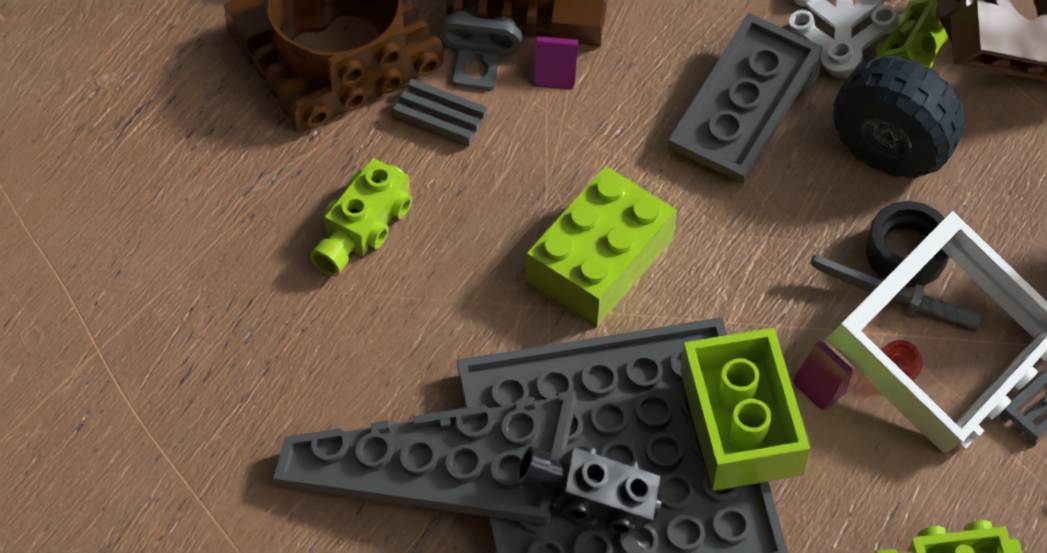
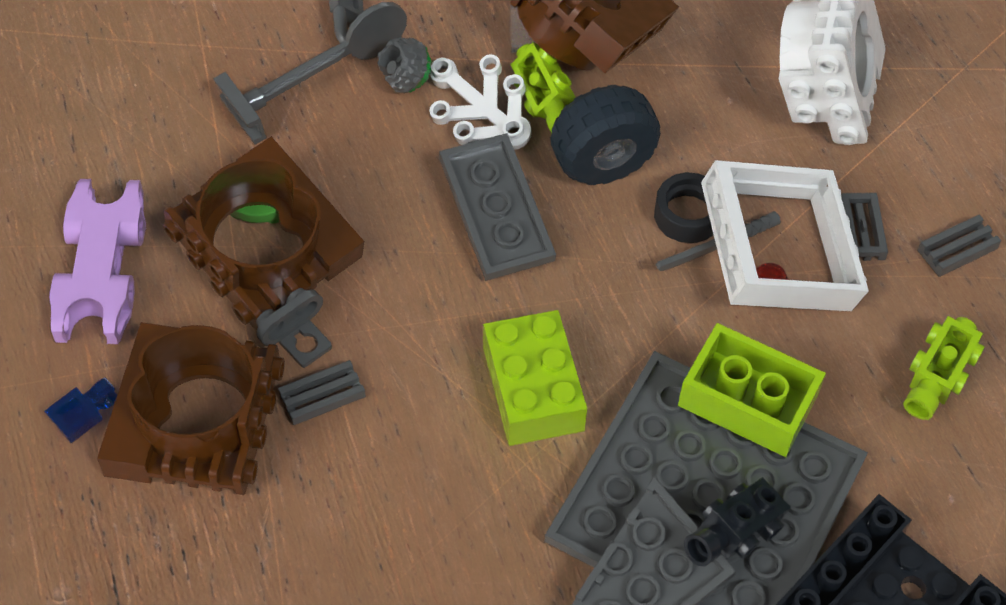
camera: 50 degrees left, 0 degrees up
(379, 195) = (357, 486): lime brick -> none
(555, 62) = (355, 291): magenta slope -> none
(823, 376) = (749, 322): magenta slope -> none

